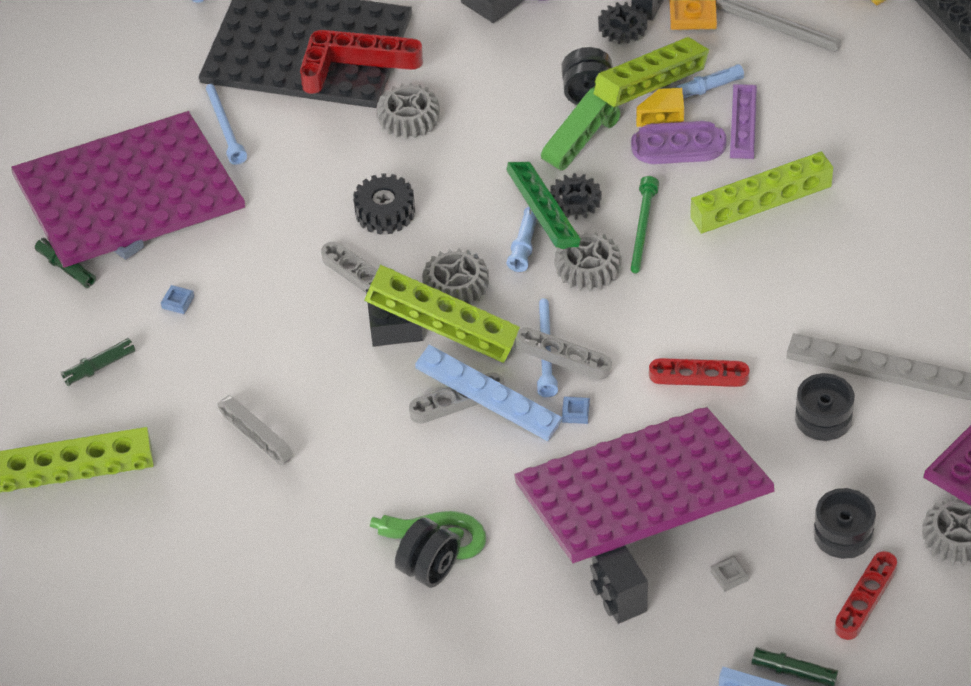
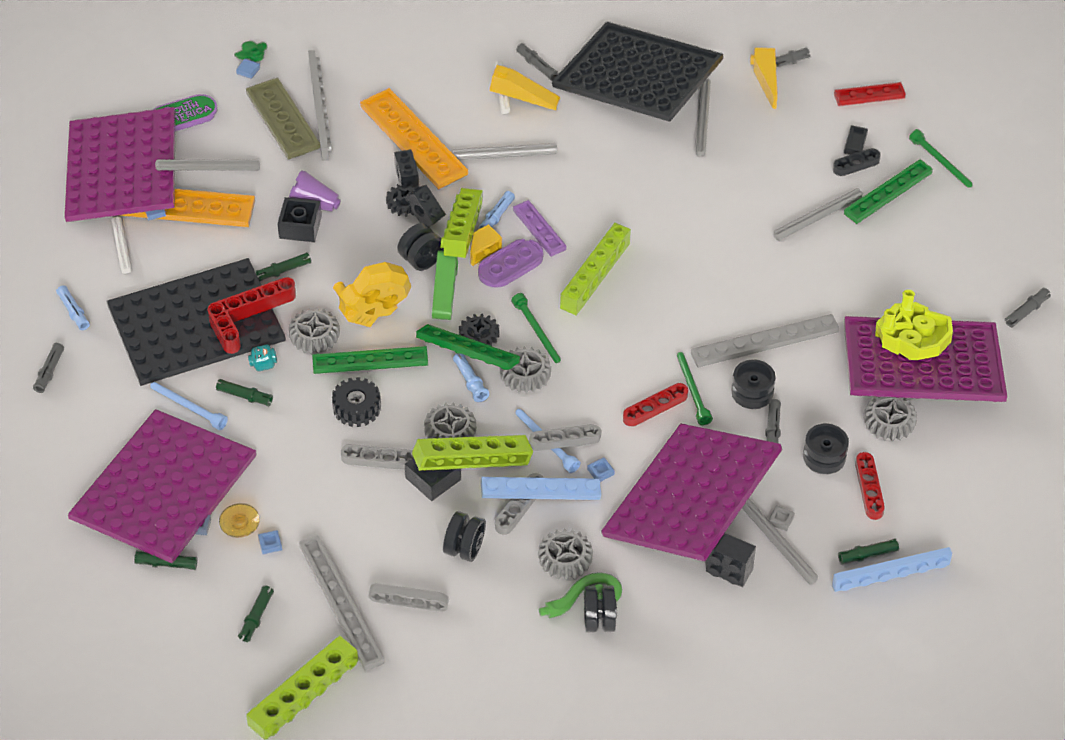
camera: 40 degrees left, 0 degrees up
(121, 25) = (45, 374): none -> dark grey pin
(164, 260) = (237, 514): none -> clear yellow dish
(186, 398) = (341, 602): none -> light grey plate
(290, 143) = (250, 394): none -> dark green pin
(332, 112) = (262, 358): none -> teal head
(358, 396) = (464, 536): none -> black wheel
(437, 32) = (284, 266): none -> dark green pin
(438, 169) = (370, 360): none -> green plate
(464, 484) = (567, 560): none -> light grey gear
(486, 97) = (373, 293): none -> yellow brick
(629, 35) = (424, 205): none -> black brick
(702, 595) = (780, 542): none -> light grey axle
(740, 412) = (703, 415): none -> green piece
(793, 483) = (772, 431): none -> dark grey pin

